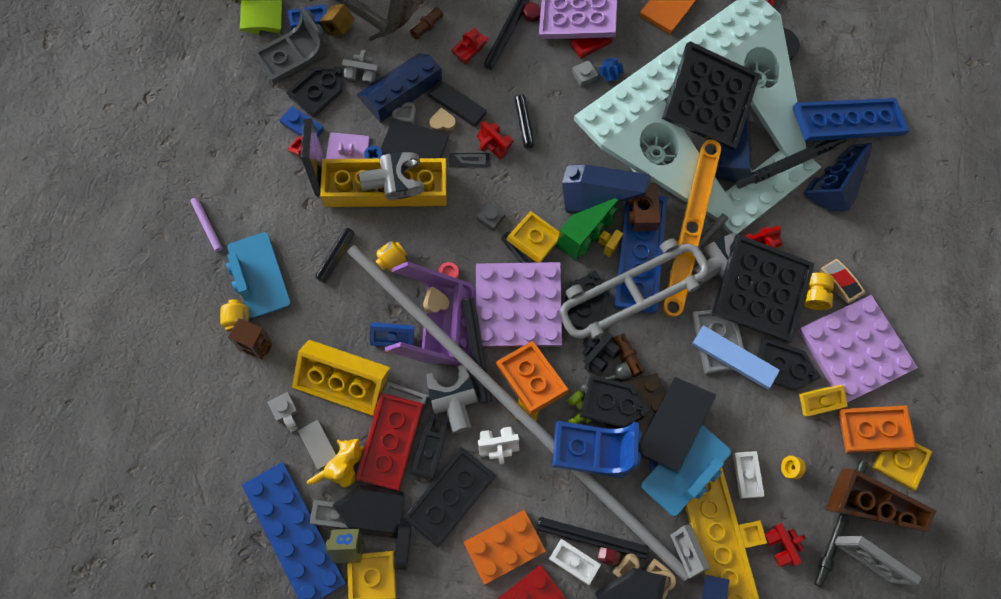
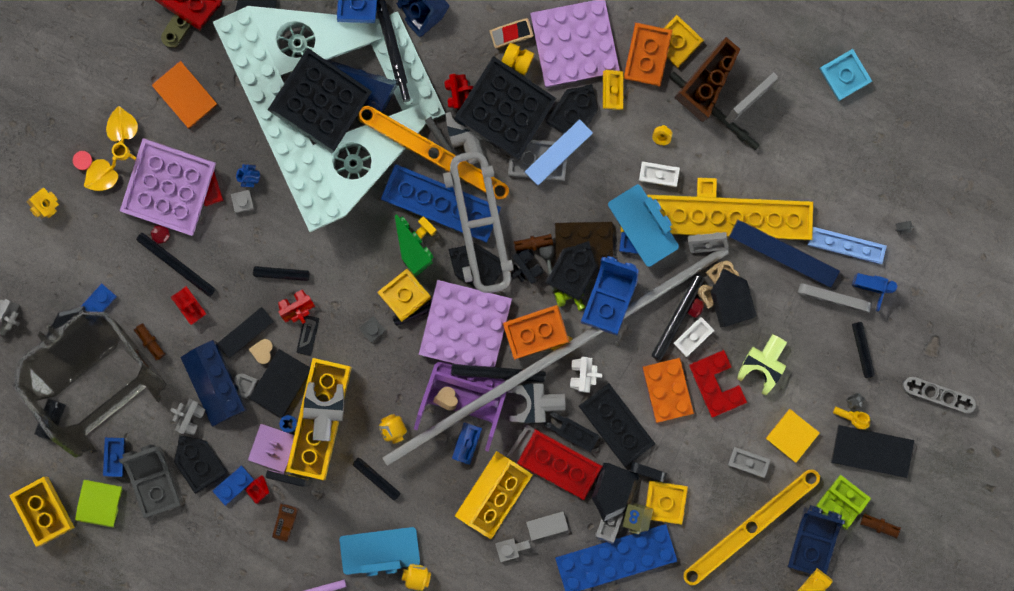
camera: 75 degrees left, 15 degrees up
(250, 339) = (444, 565): reddish brown brick -> none
(273, 177) = (285, 522): none -> reddish brown leg
(337, 20) = (128, 428): pearl gold brick -> none
(340, 468) = (573, 509): yellow animal -> none
(449, 269) = (418, 380): coral tile -> none
(593, 185) = (374, 227): dark blue wedge -> none
(645, 219) = (395, 182): reddish brown brick -> none
(676, 424) = (605, 222): black tile -> none
(789, 555) = (730, 164): red hips -> none

